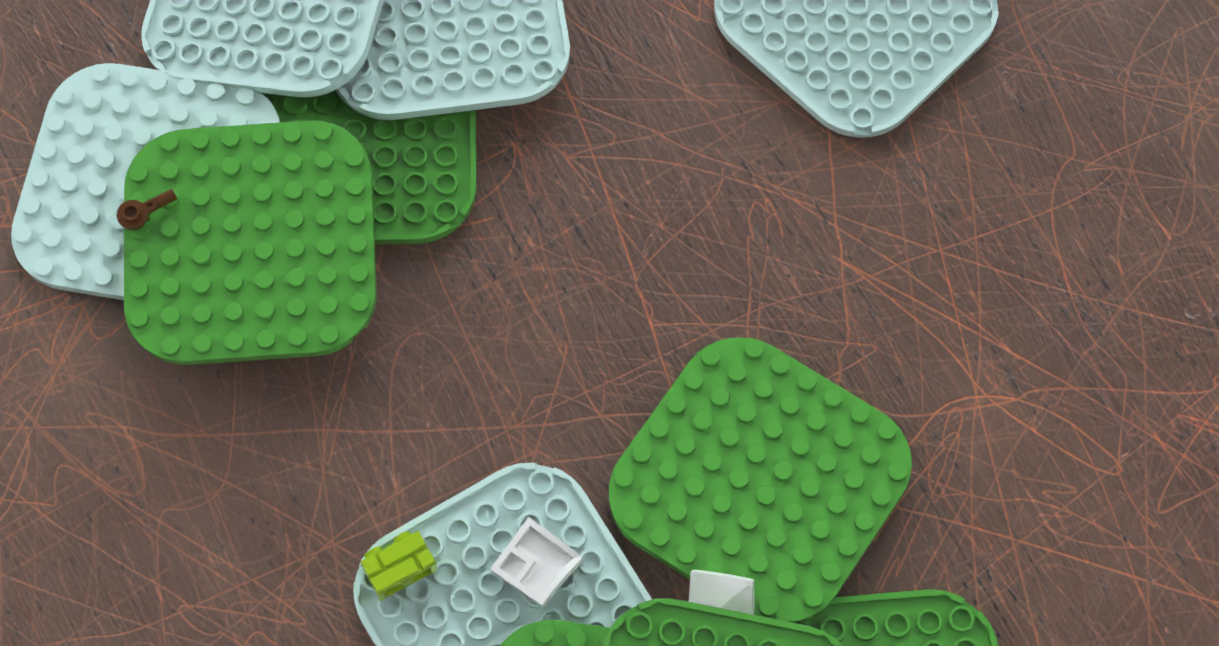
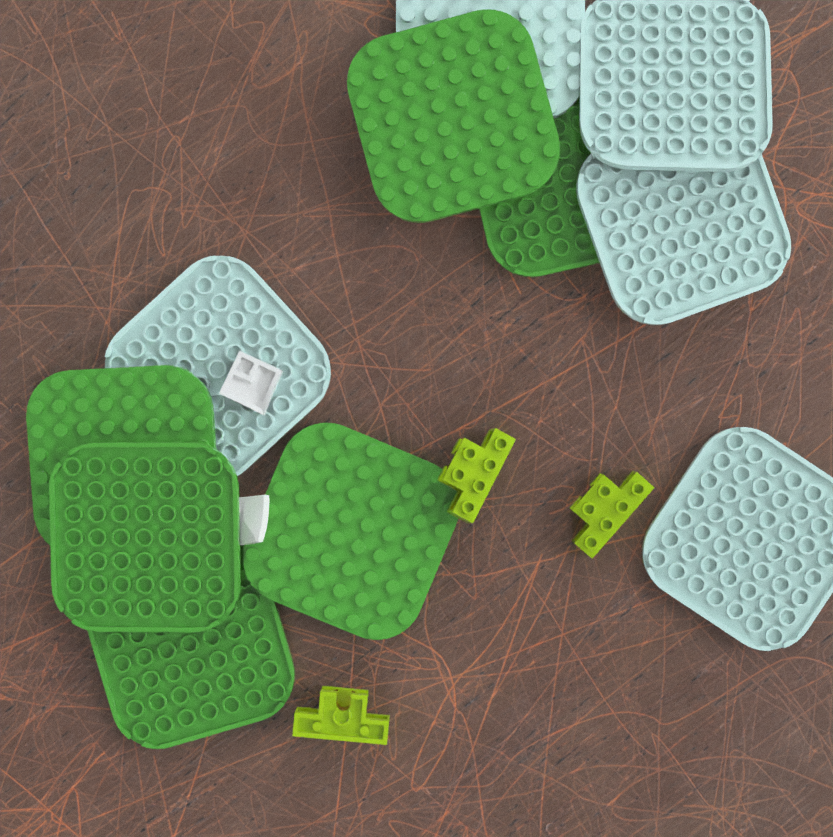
camera: 80 degrees right, 20 degrees up
(134, 214) = (452, 24): reddish brown plate -> none
(398, 564) = (229, 284): lime brick -> none
(712, 306) = (474, 472): none -> lime piece
(789, 163) = (607, 508): none -> lime piece
(1007, 536) = (342, 718): none -> lime piece

